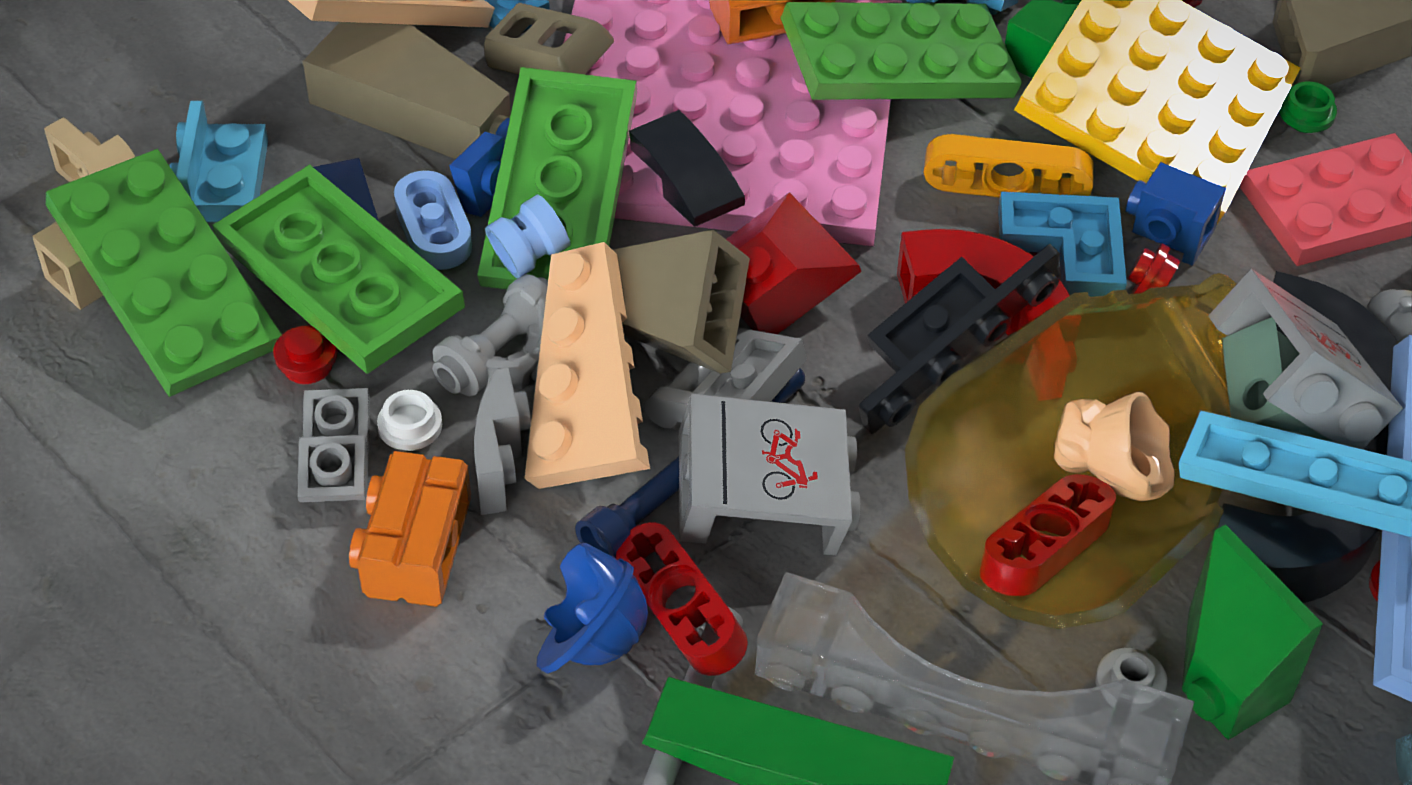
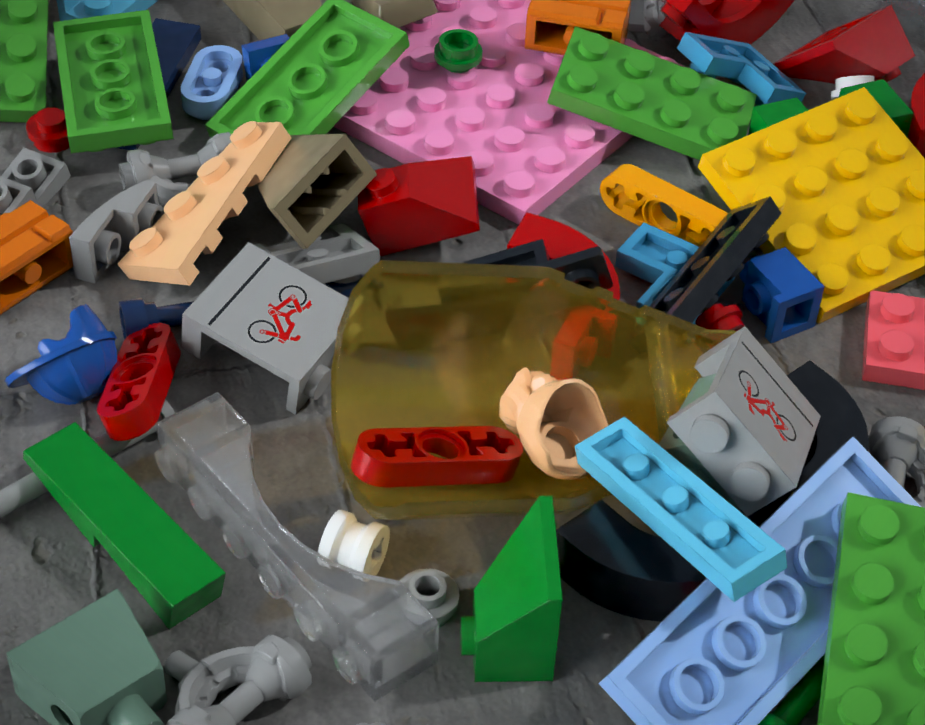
camera: 30 degrees right, 5 degrees down
(409, 421) = (76, 195): white plate -> none
(527, 236) = (244, 104): light blue wheel -> none
(676, 76) = (458, 51): none -> green plate
(690, 168) = (406, 109): black slope -> none
(1032, 662) = (355, 543): none -> white wheel
(1118, 210) = (717, 260): none -> black plate

